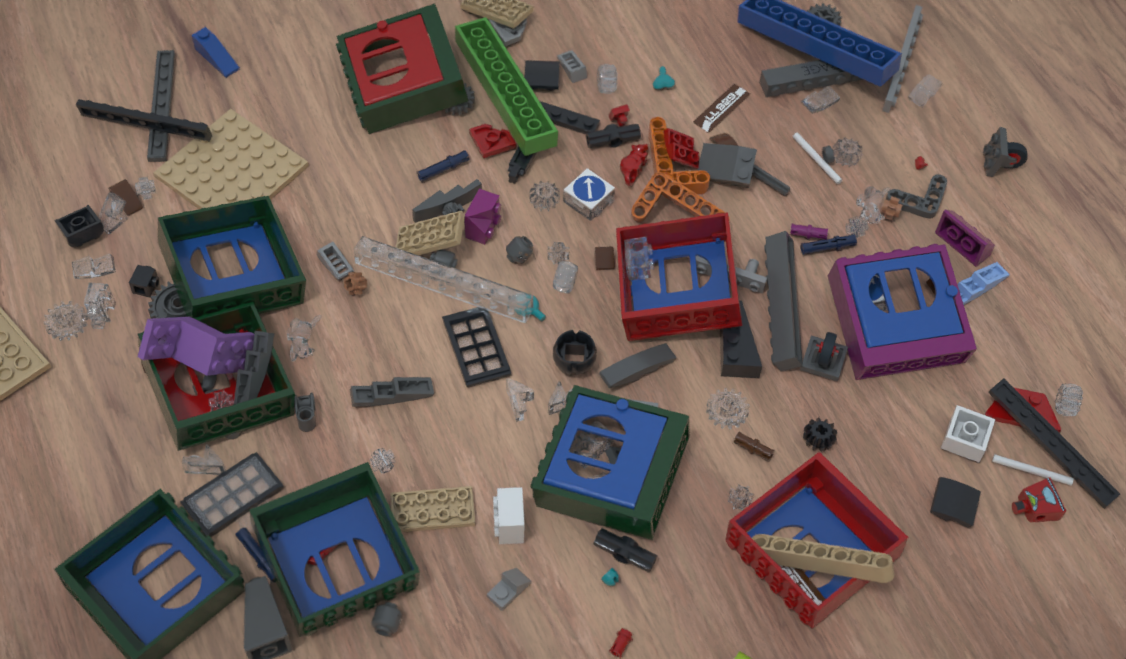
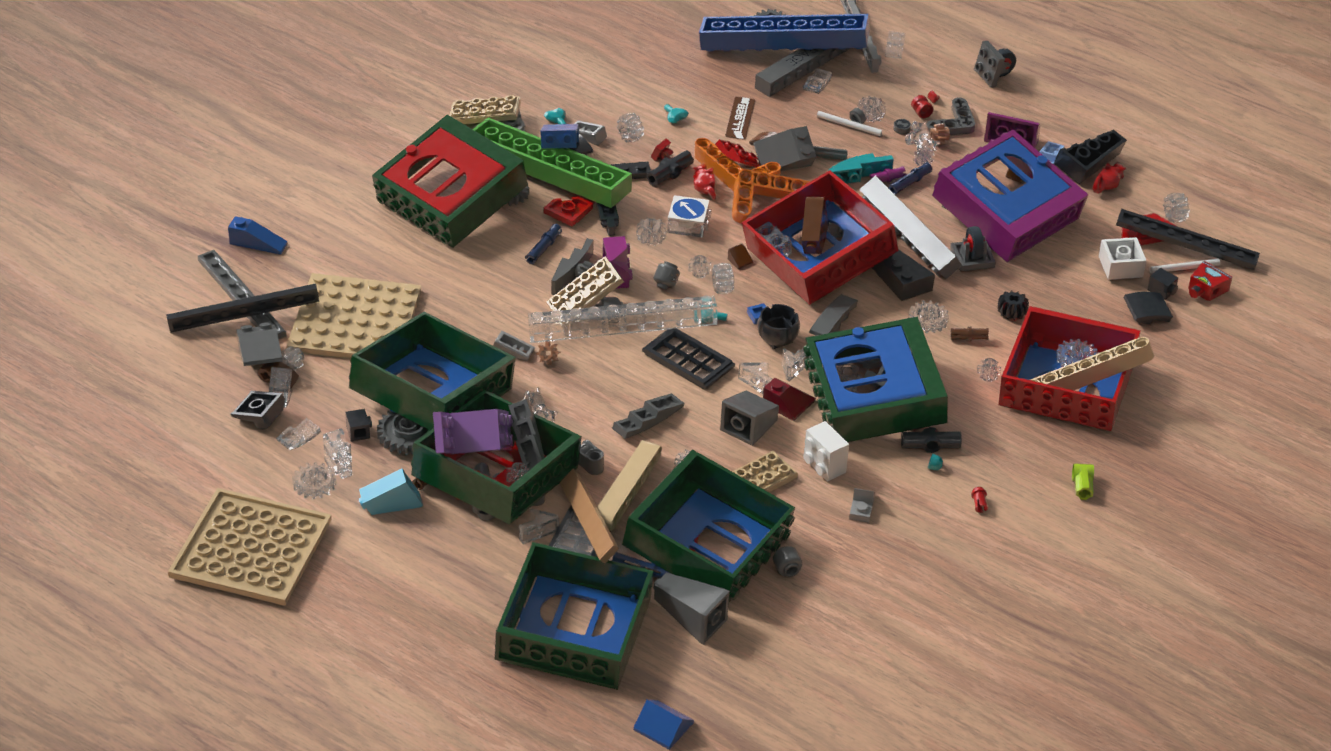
camera: 30 degrees left, 15 degrees down
(111, 367) = (390, 494): none -> medium azure slope
(123, 164) = (259, 344): none -> dark grey slope
(238, 483) = (589, 516): none -> medium nougat tile
(308, 460) = (629, 483): none -> tan beam
(475, 437) = (747, 416): none -> dark grey slope
(526, 60) = (559, 136): none -> blue panel
(528, 433) = (791, 400): none -> dark red slope
(557, 38) = (556, 116): none -> teal rock
(574, 324) = (754, 312): none -> blue plate
(681, 263) = (814, 225): none -> reddish brown slope
(778, 210) = (861, 166): none -> teal slope
(840, 533) = (1074, 352): none -> clear gear
(864, 181) = (902, 126): none -> dark grey tile
(898, 170) = (922, 106): none -> red wheel
(991, 482) = (1163, 283): none -> black brick
(1016, 301) = (1086, 158): none -> black wedge
(1027, 332) = (1109, 177): none -> red animal

